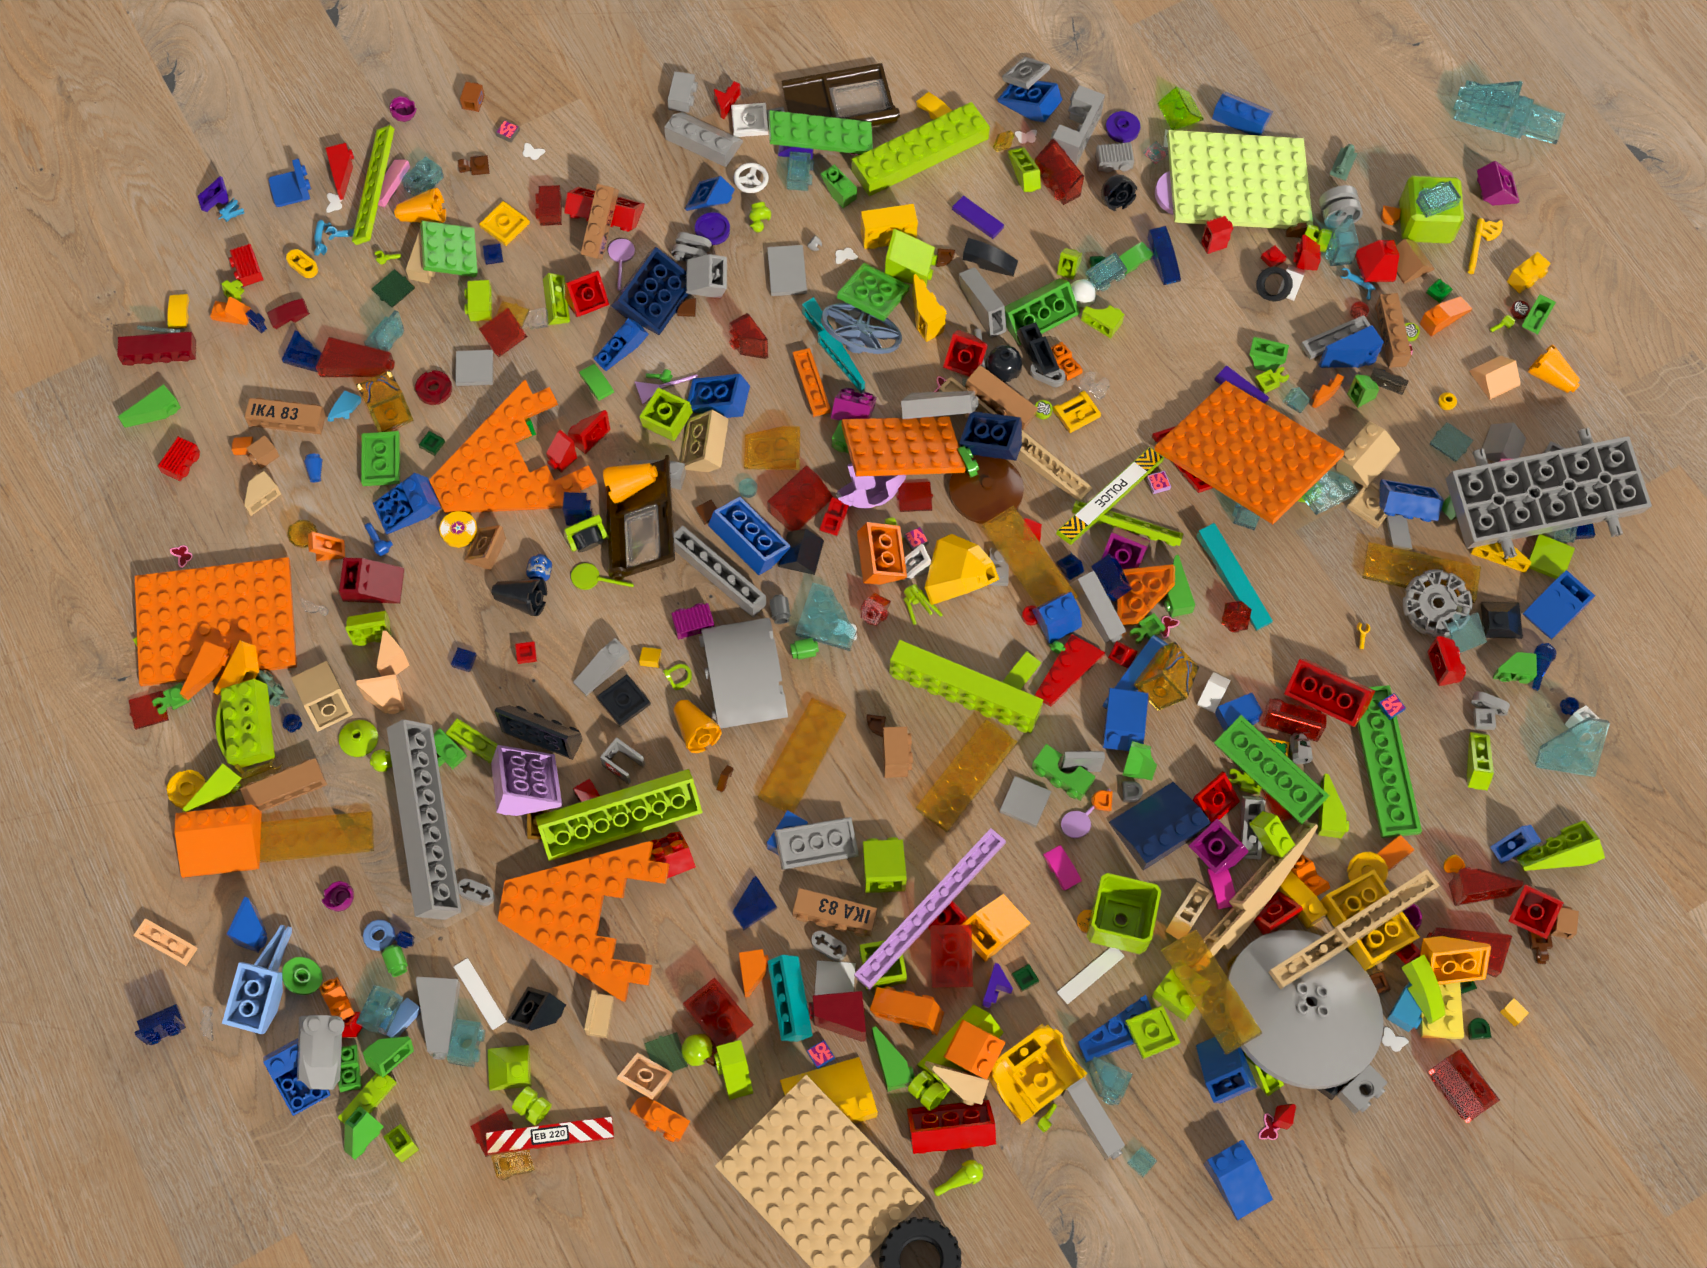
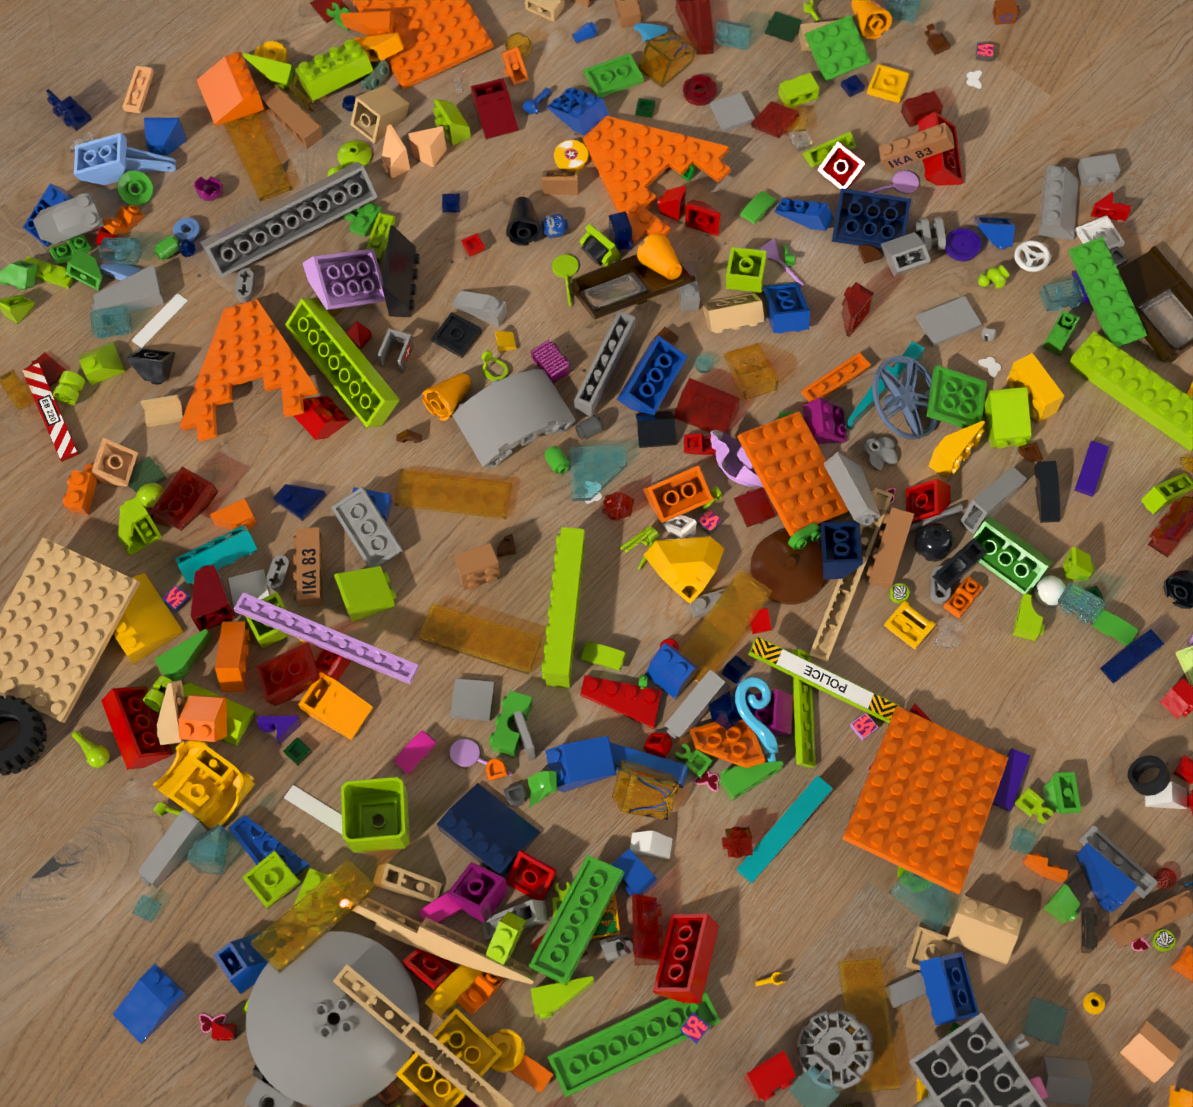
camera: 75 degrees right, 0 degrees up
(899, 373) = (882, 454): none -> light grey plate
(1113, 562) = (766, 737): none -> medium azure plant

